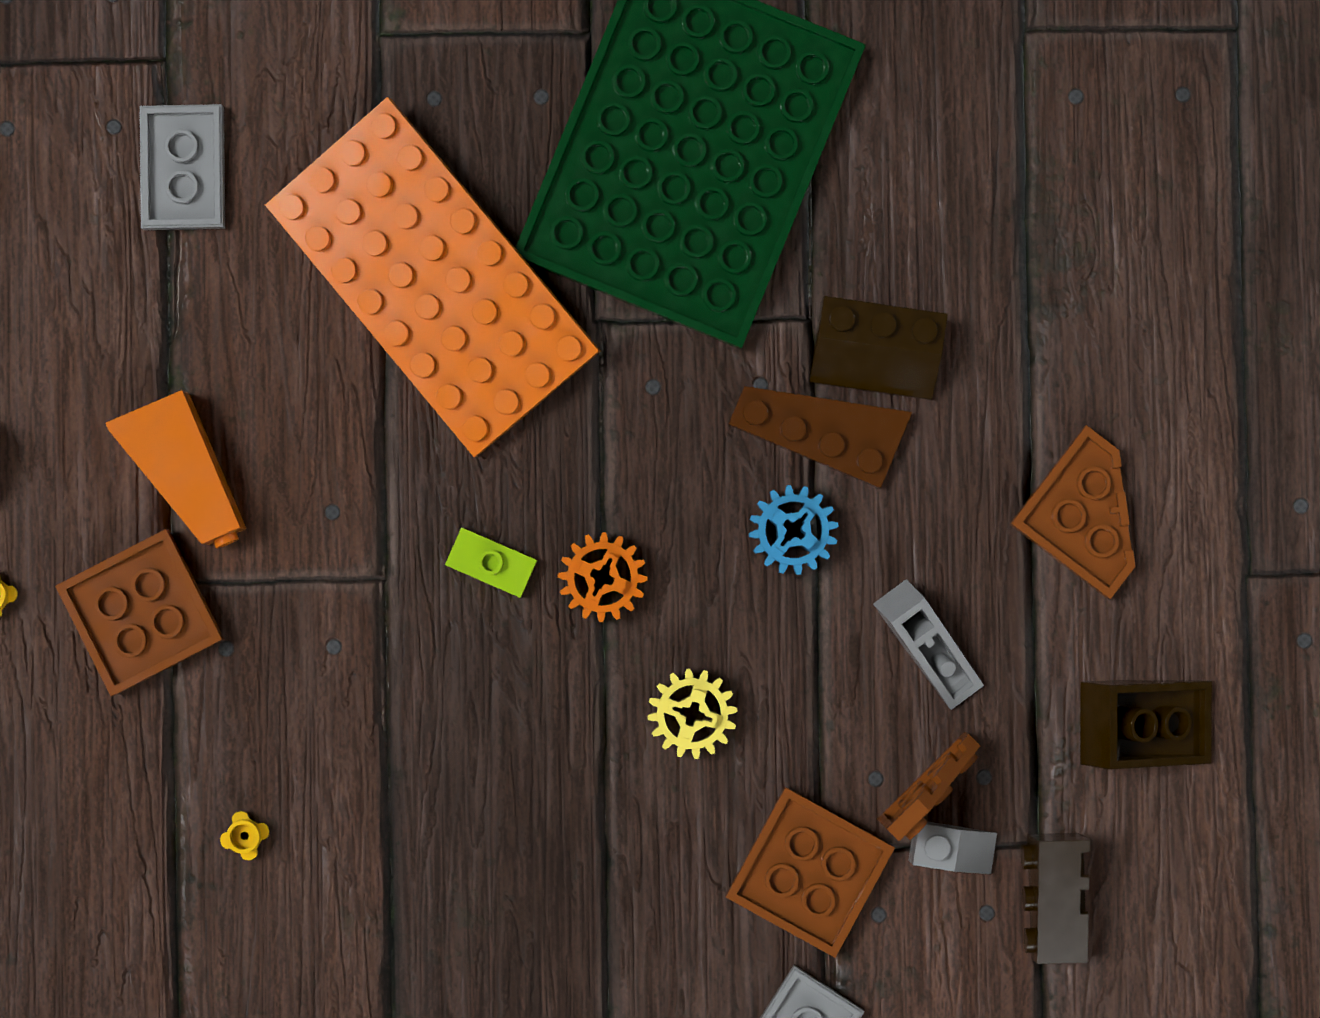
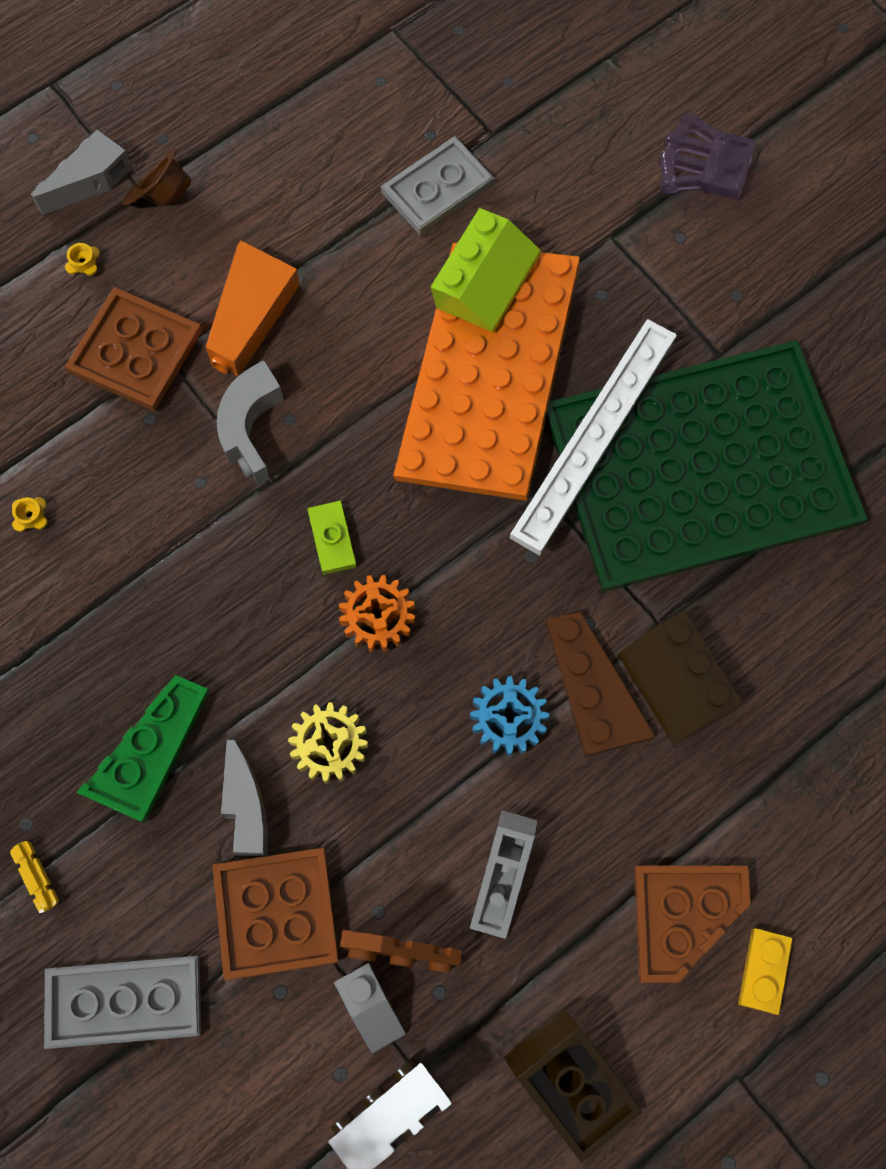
camera: 50 degrees right, 15 degrees down
(285, 548) = (240, 406): none -> light grey arch
(335, 205) = (485, 271): none -> lime slope
(579, 895) = (142, 762): none -> green wing
(587, 235) = (592, 437): none -> white plate
(690, 828) = (243, 803): none -> light grey slope
(1181, 482) = (765, 971): none -> yellow plate

